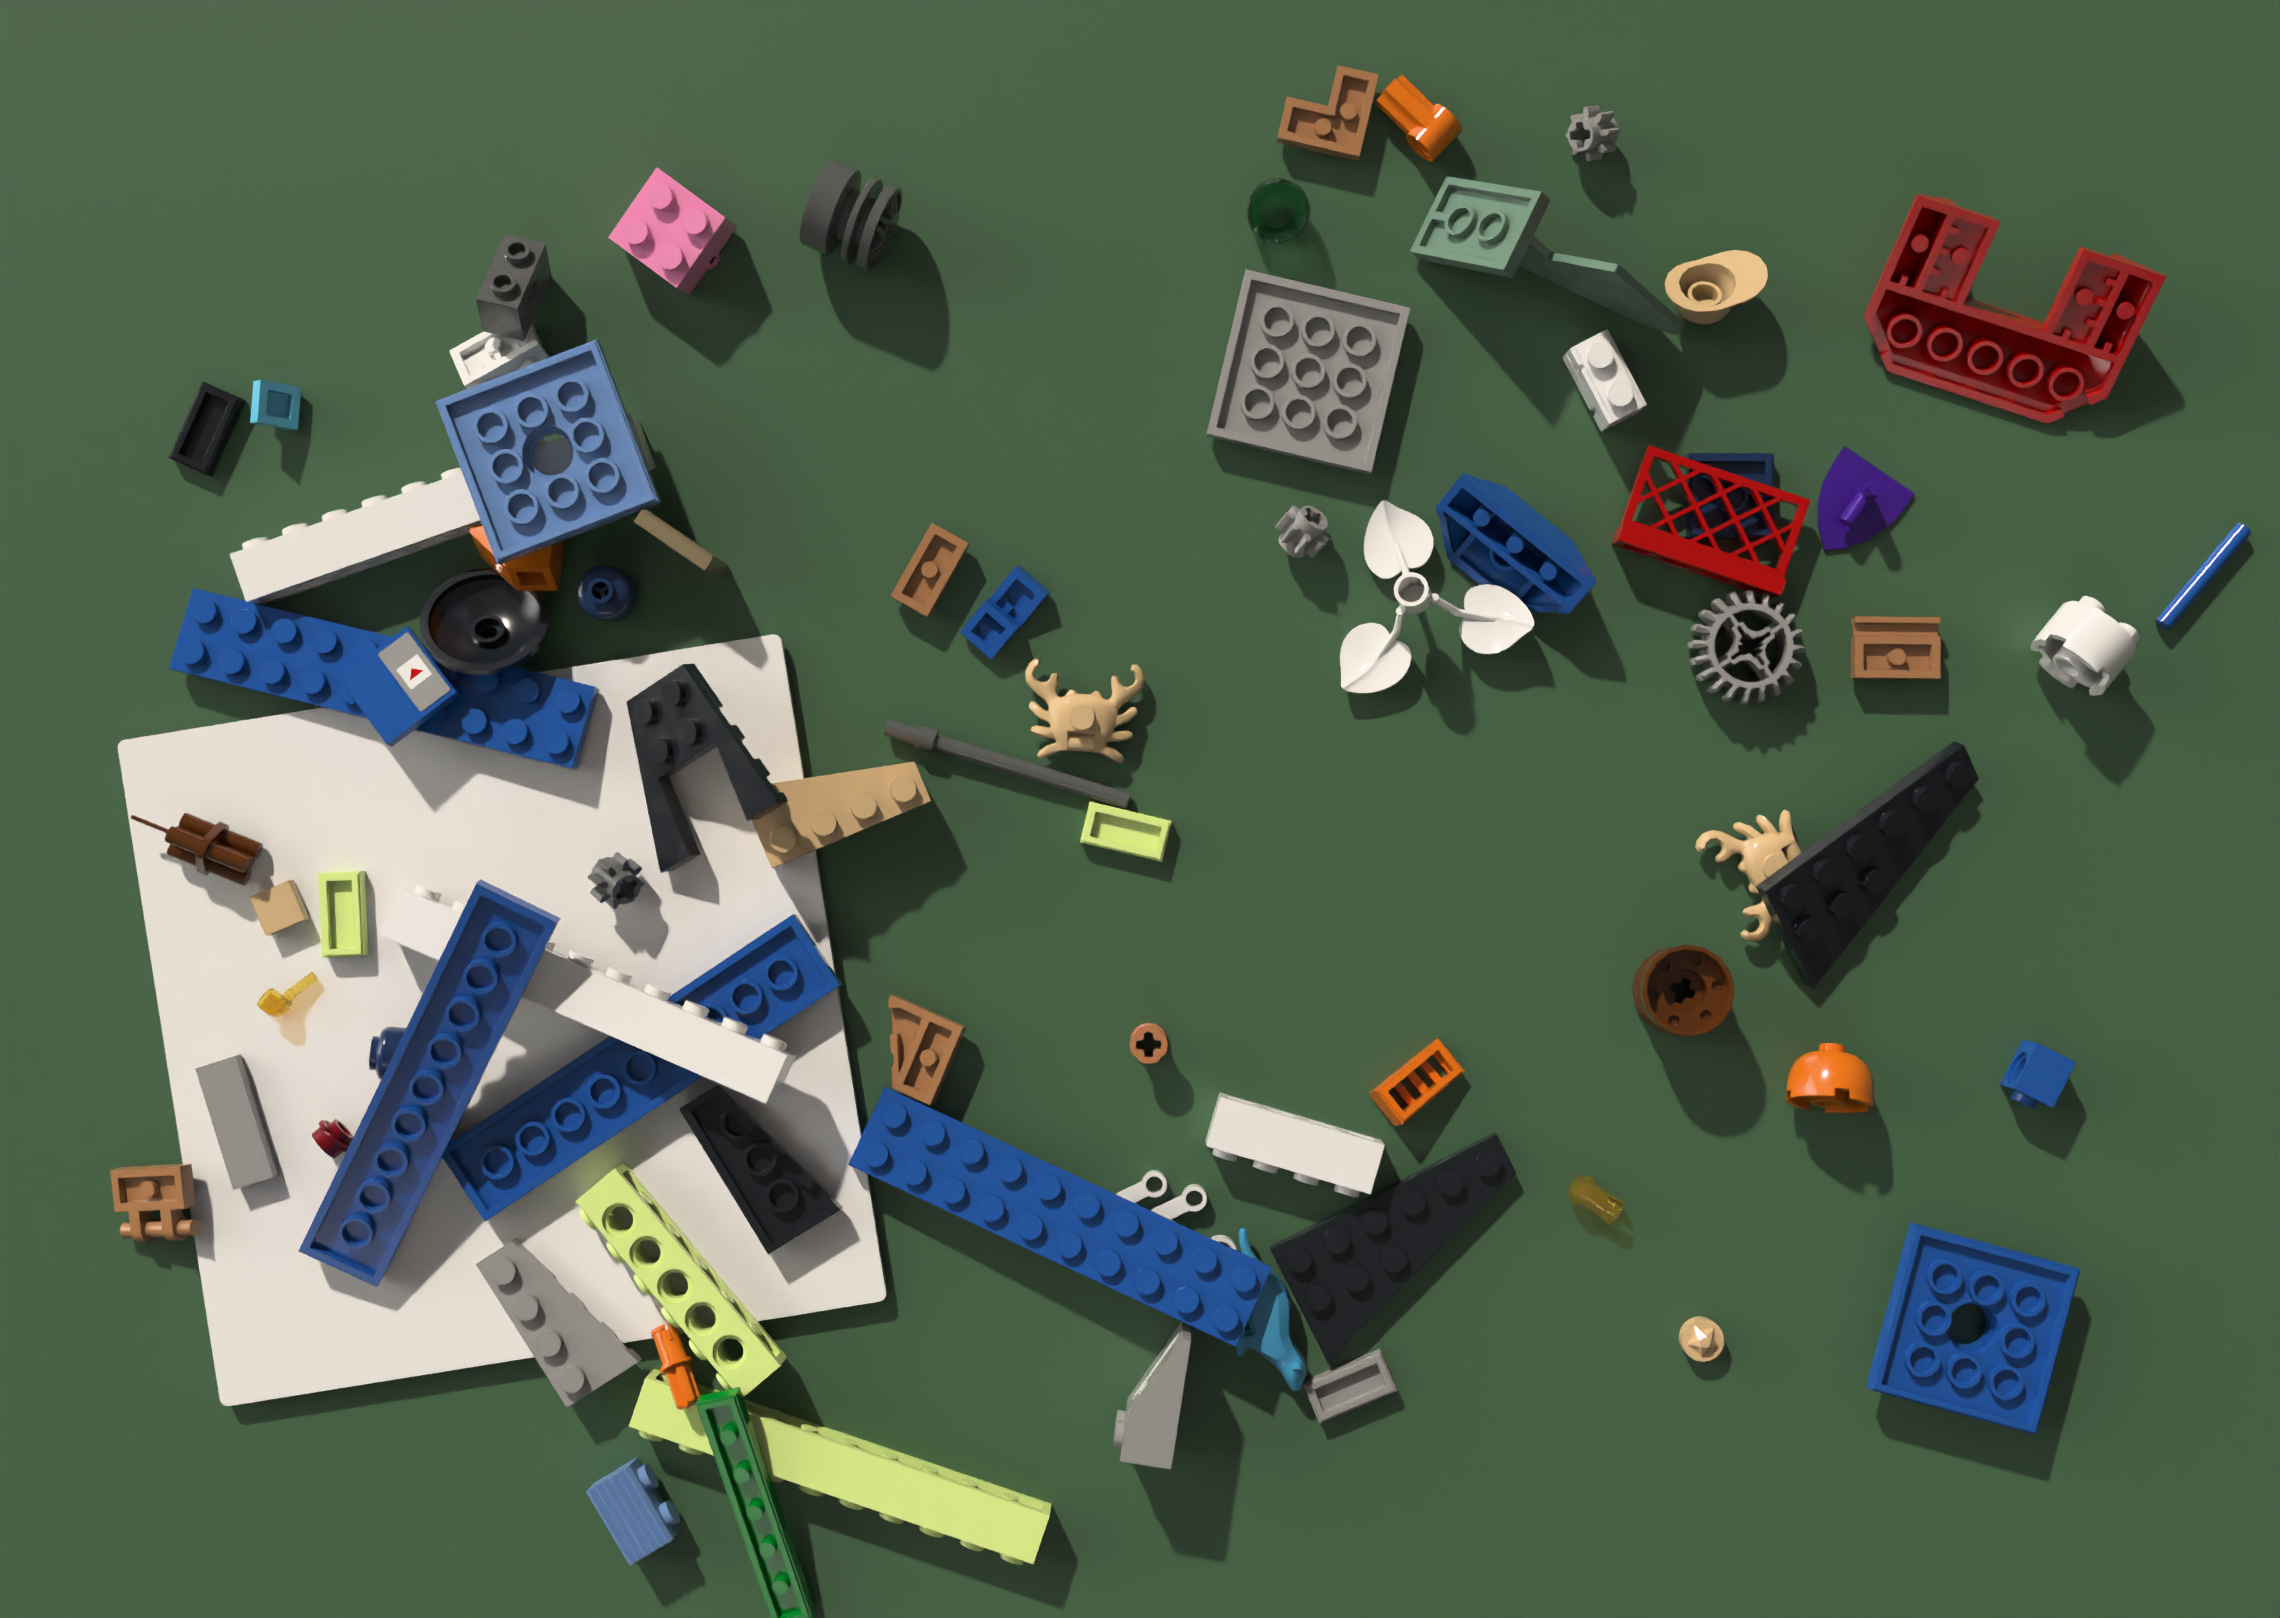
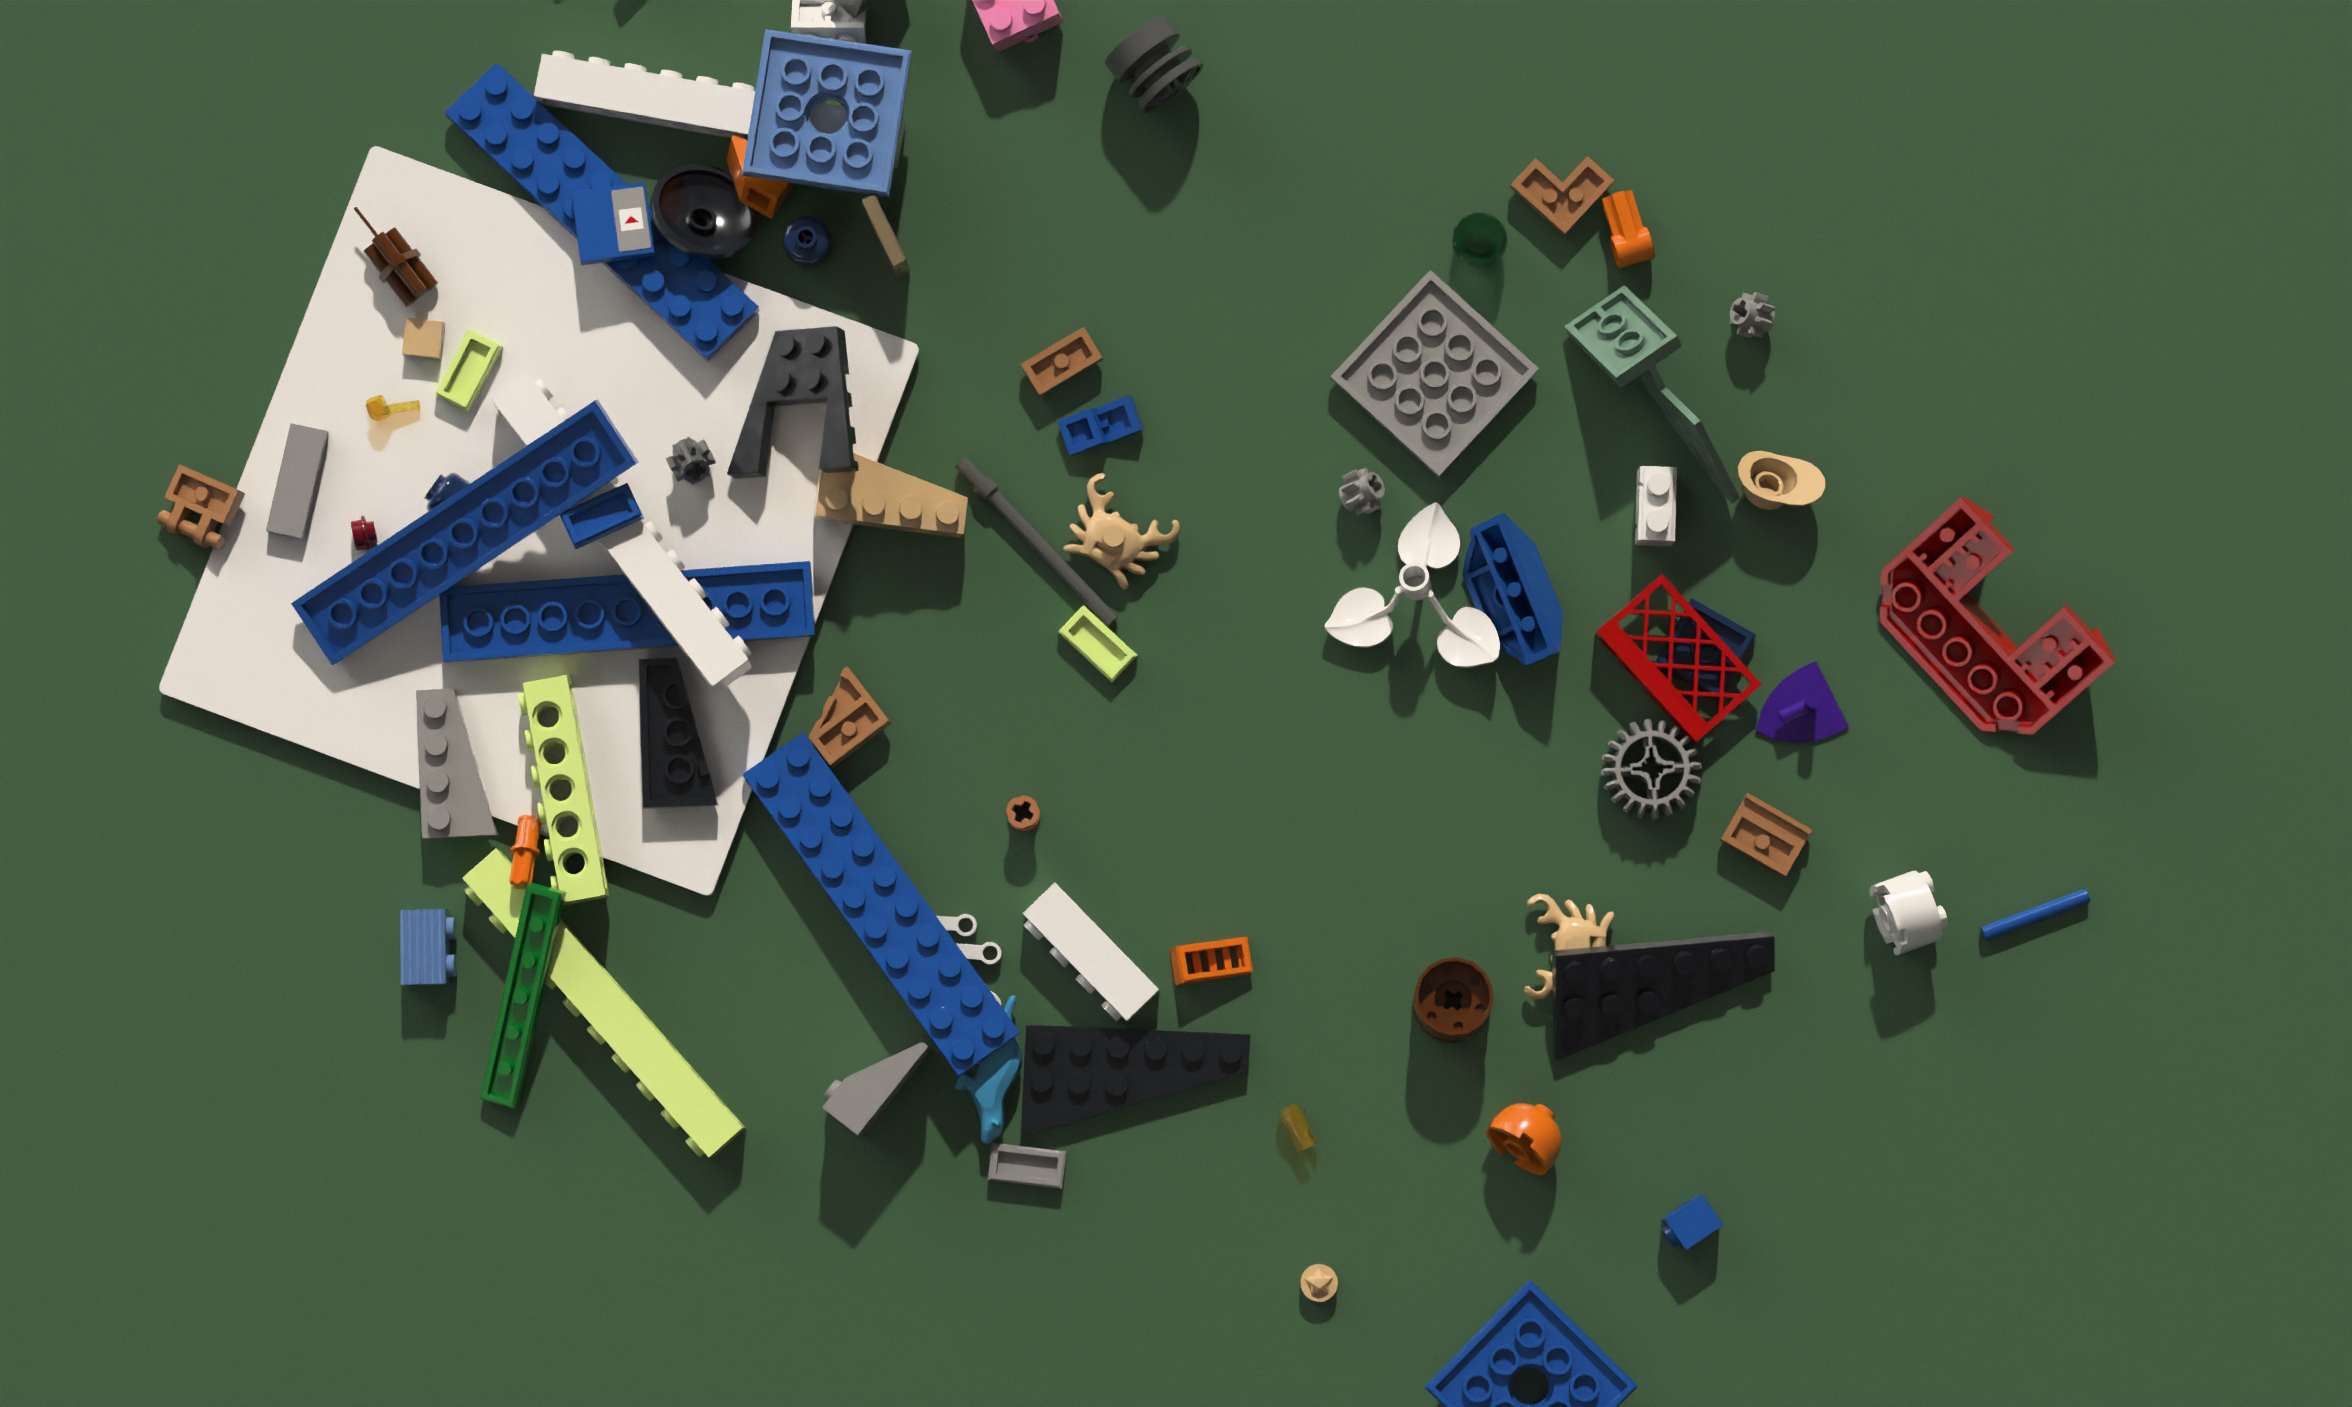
camera: 30 degrees right, 5 degrees down
(555, 992) = (601, 516): none -> blue tile

